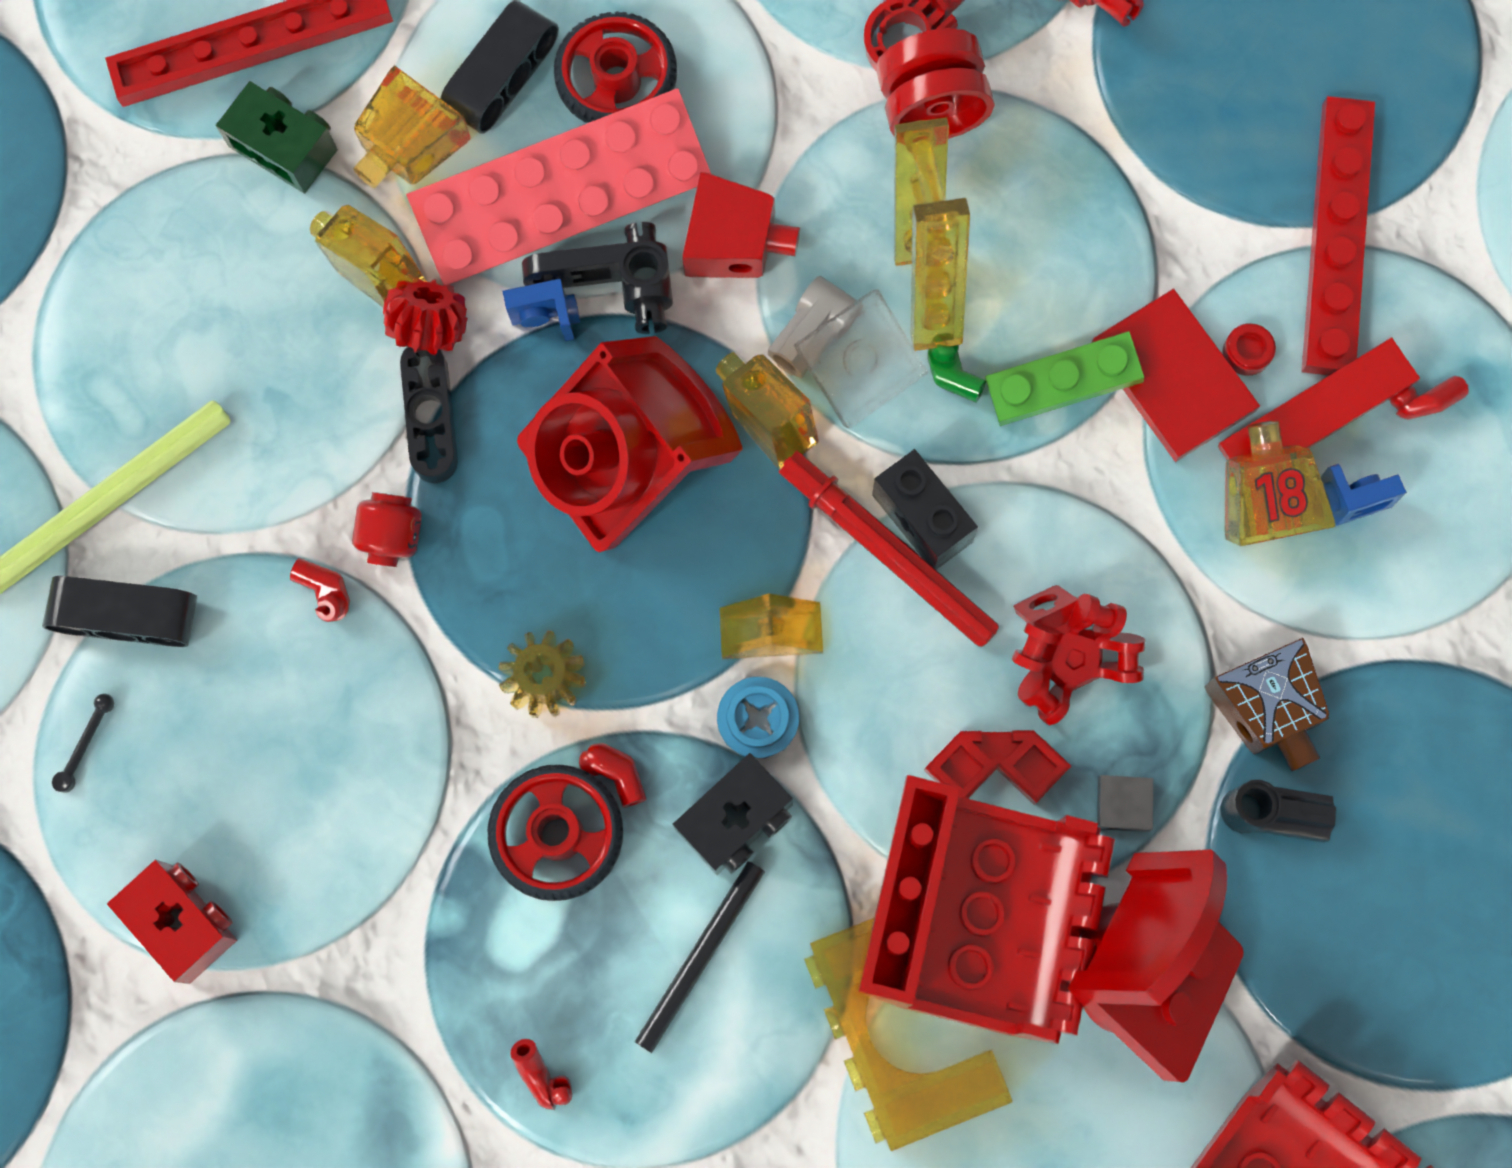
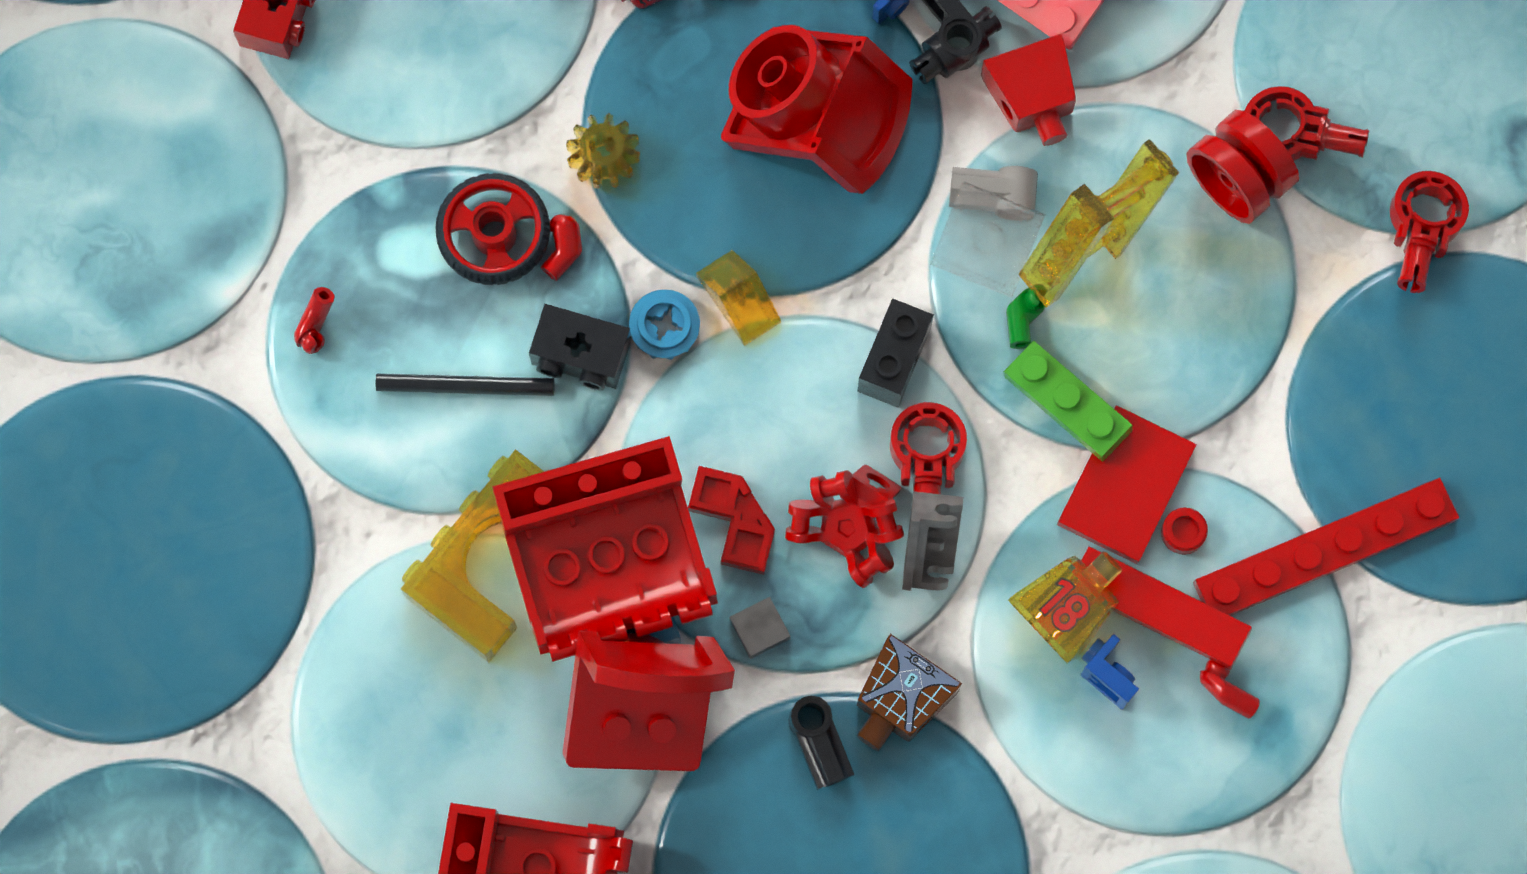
camera: 55 degrees right, 0 degrees up
(768, 406) = (904, 192): clear yellow torso -> none
(888, 548) = (851, 345): red axle -> none
(1047, 559) = (928, 468): none -> red pin
(1137, 584) = (931, 540): none -> flat silver hinge

